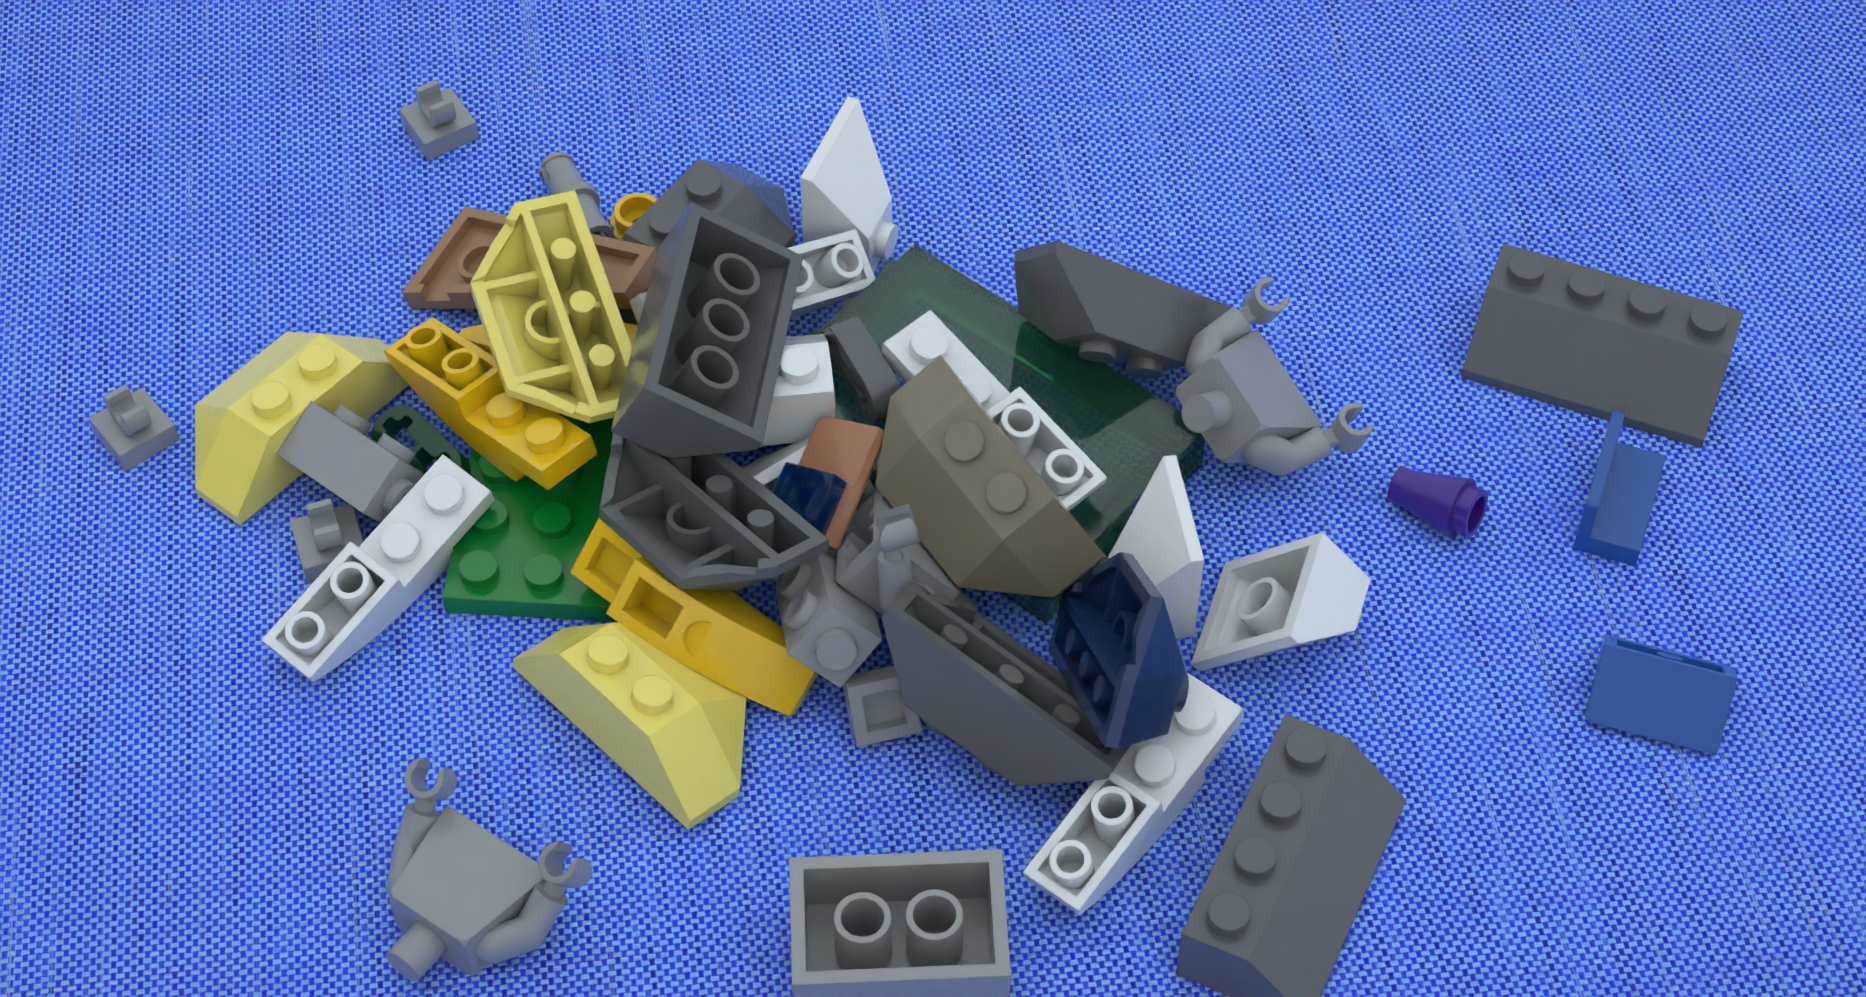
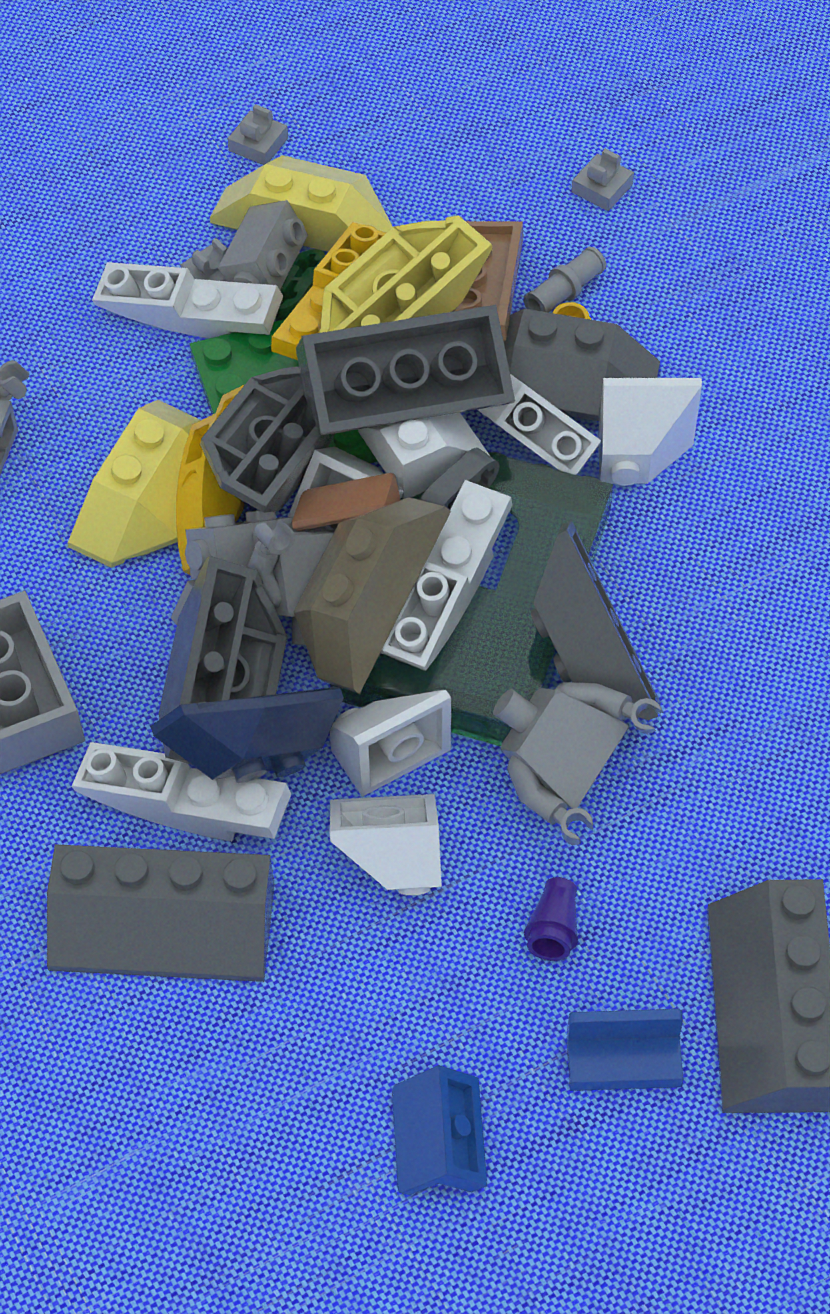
camera: 70 degrees right, 5 degrees up
(810, 493) = (318, 492): clear blue tile -> none

